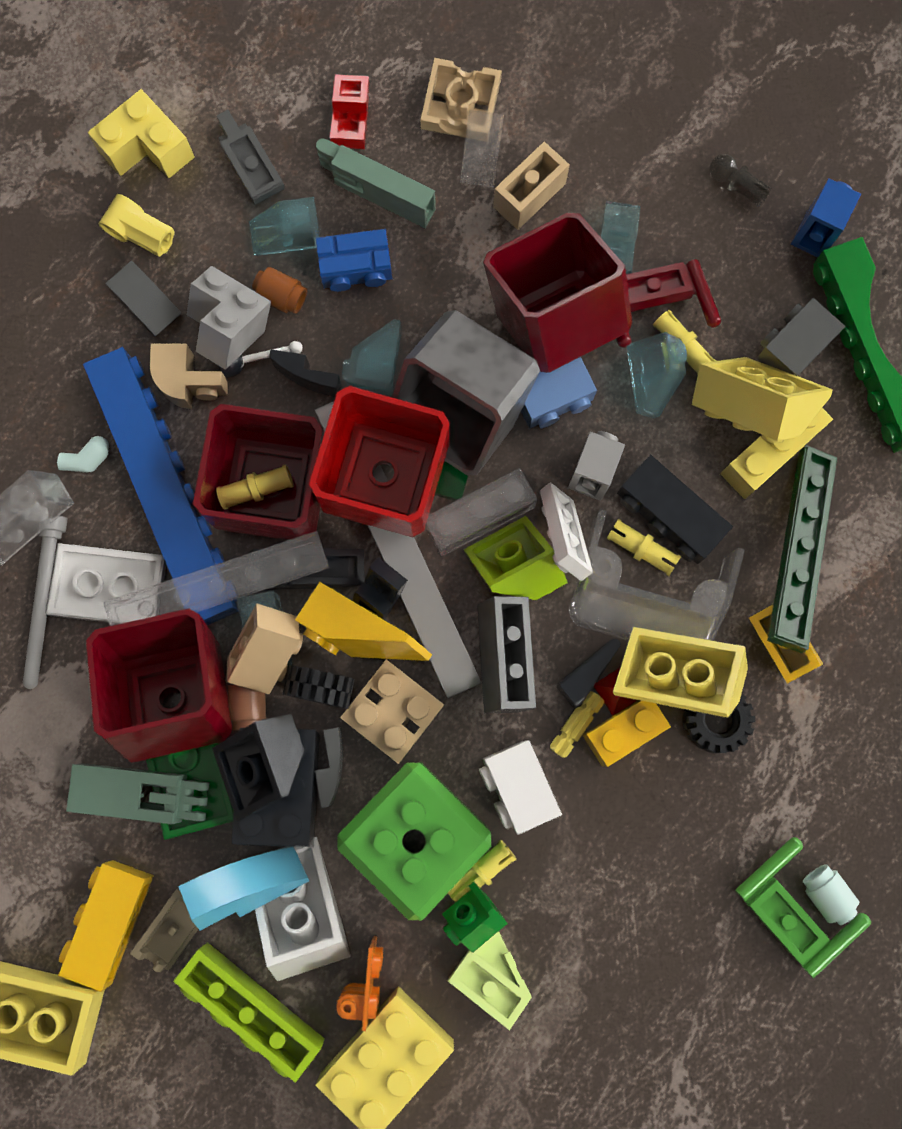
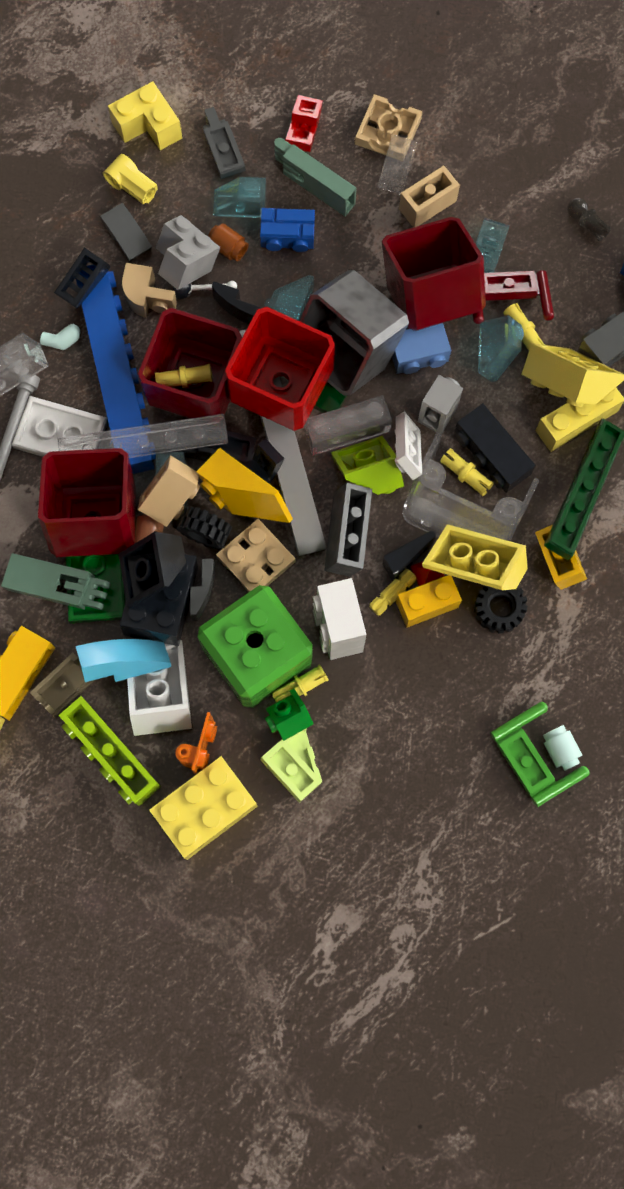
camera: 10 degrees right, 5 degrees down
(84, 370) = (74, 273): none -> black slope

